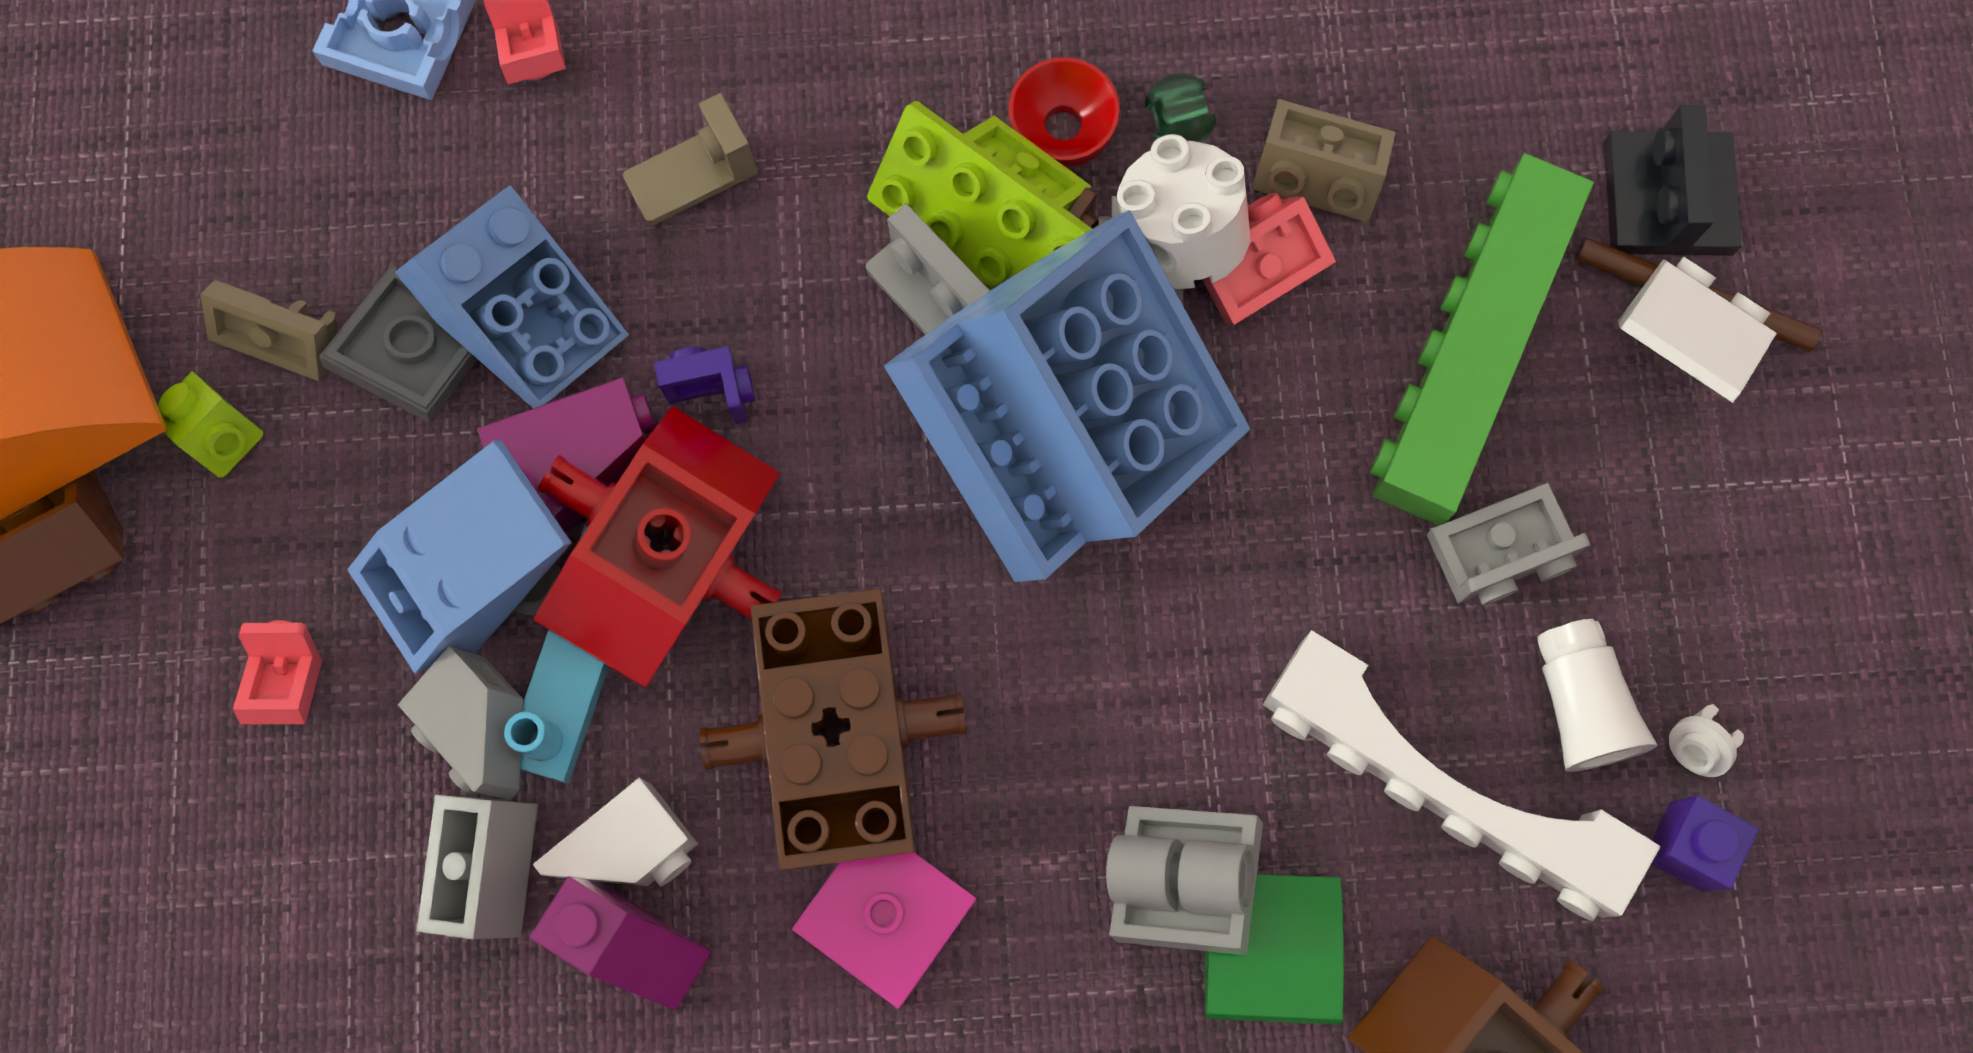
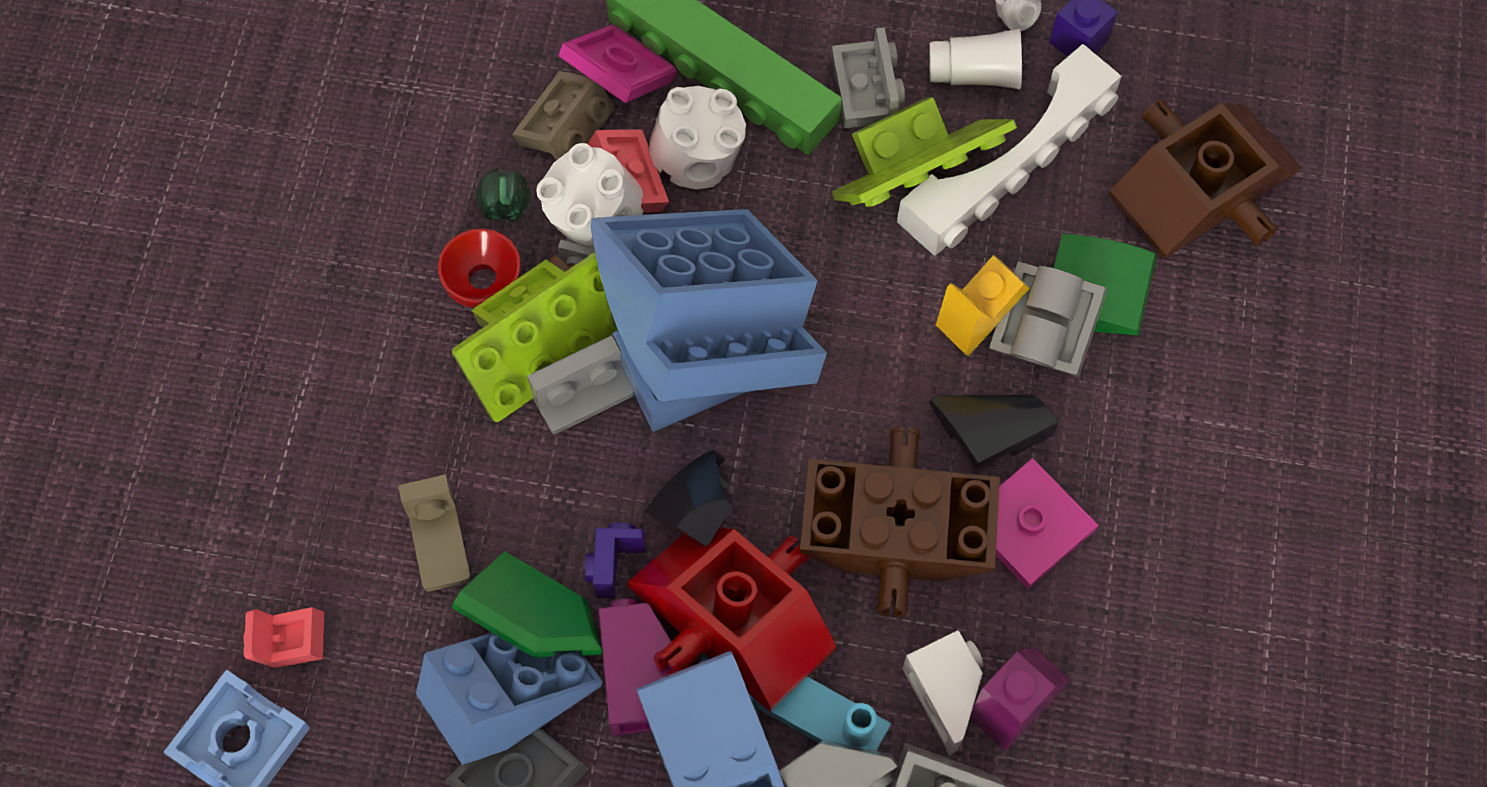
camera: 80 degrees left, 10 degrees down
(613, 298) = (529, 609): none -> green tile
(795, 458) = (695, 499): none -> black slope
(1017, 833) = (994, 423): none -> black slope
(1186, 779) = (976, 309): none -> yellow slope
(1337, 331) = (697, 136): none -> white brick
(1408, 633) = (911, 144): none -> lime bracket
(1424, 200) = (618, 63): none -> dark pink plate

